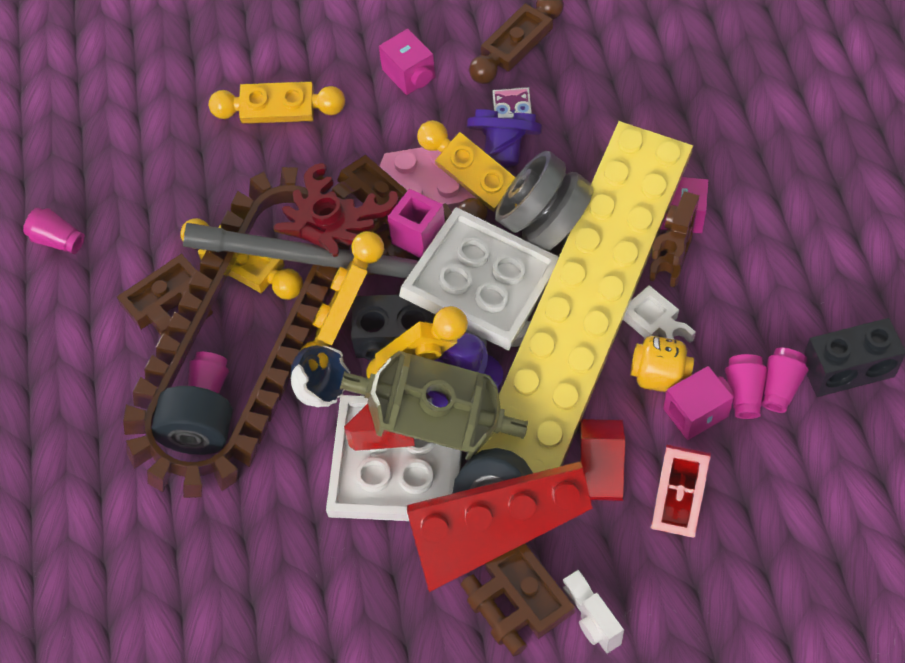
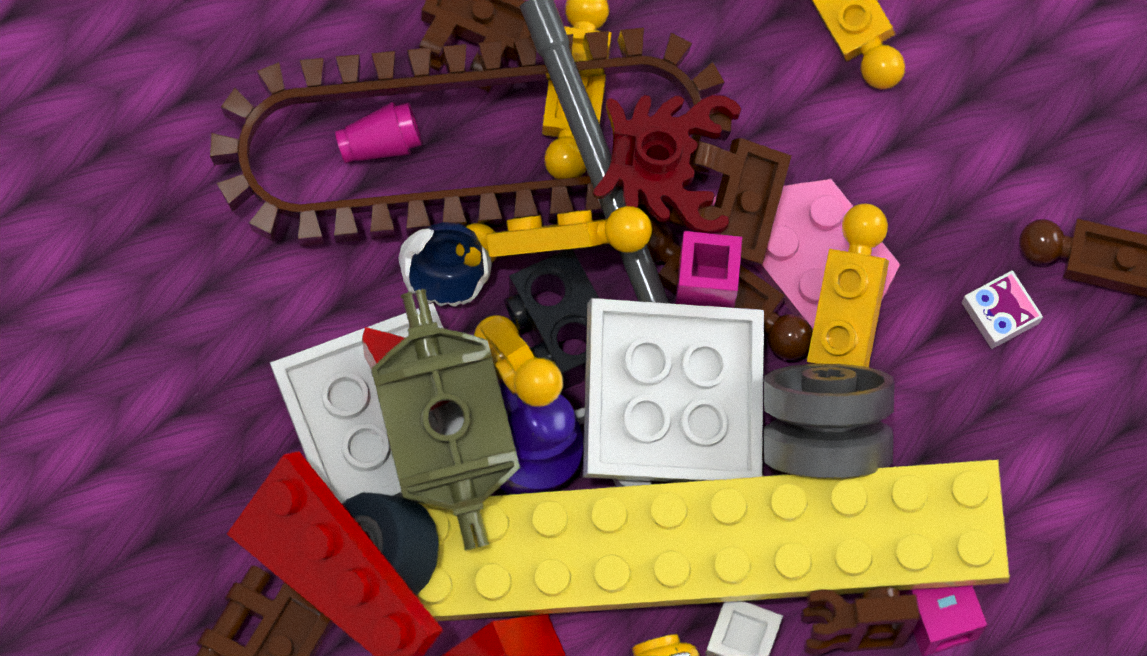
camera: 55 degrees right, 10 degrees up
(192, 420) = (310, 147): black wheel -> none
(407, 61) = (998, 134): dark pink brick -> none
(504, 134) = (933, 318): dark purple plate -> none

